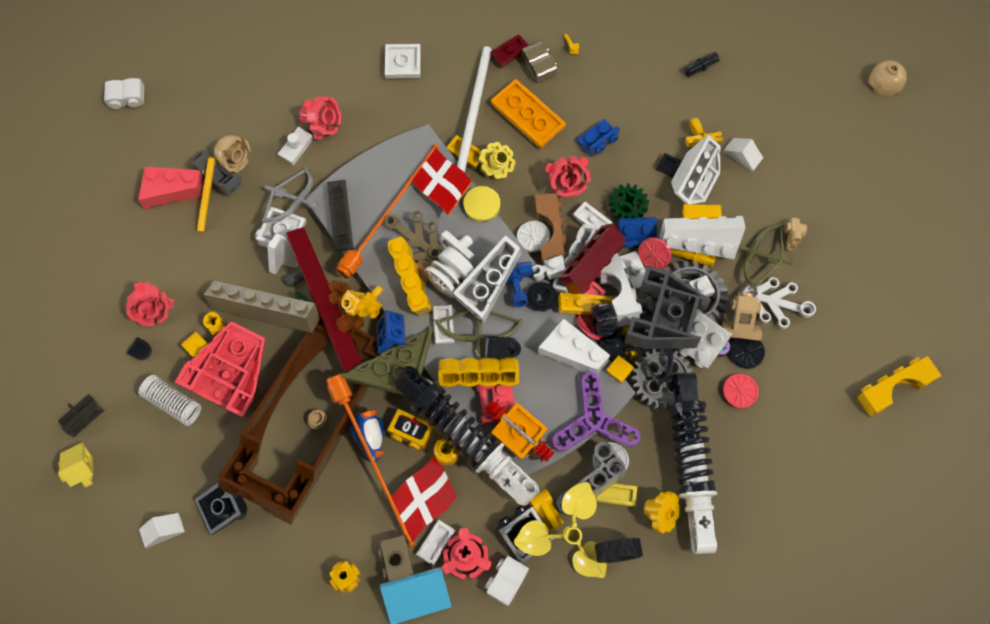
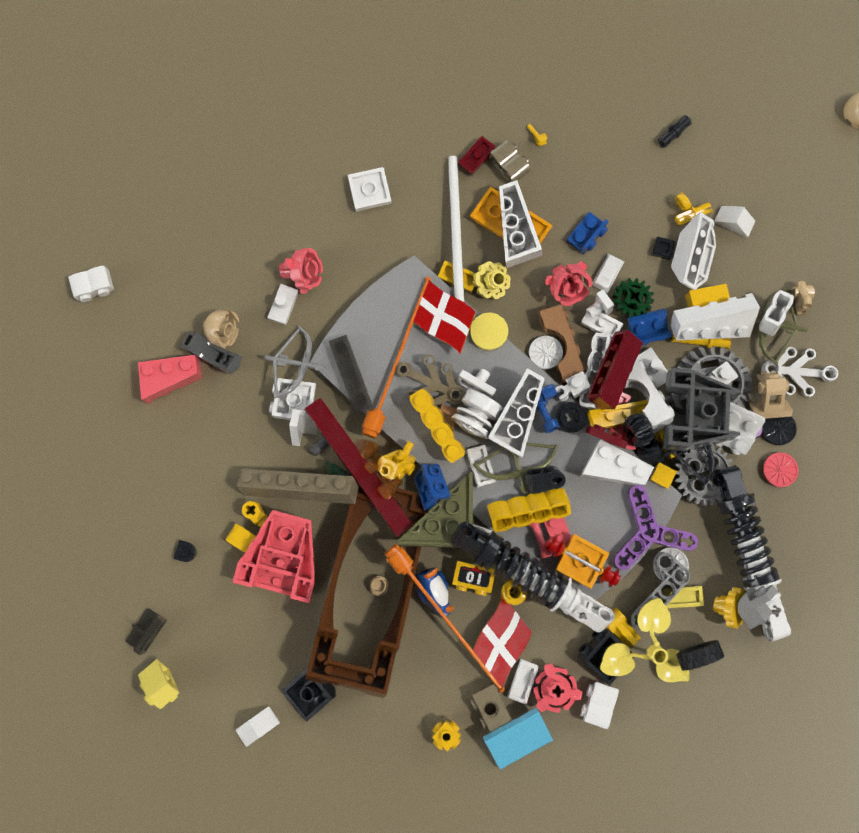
camera: 10 degrees left, 10 degrees up
(148, 301) = (182, 506): coral piece -> none
(184, 414) = (253, 606): white piece -> none
(206, 194) = (207, 377): yellow bar -> none
(530, 119) = (518, 230): none -> white wedge
(577, 321) = (599, 432): none -> dark red plate
(596, 201) = (602, 304): none -> white tile
(610, 177) = (607, 273): none -> white tile
(654, 253) = (671, 348): coral wheel -> none
(680, 509) = (753, 605): none -> light grey brick
(763, 239) = (776, 313): none -> white brick

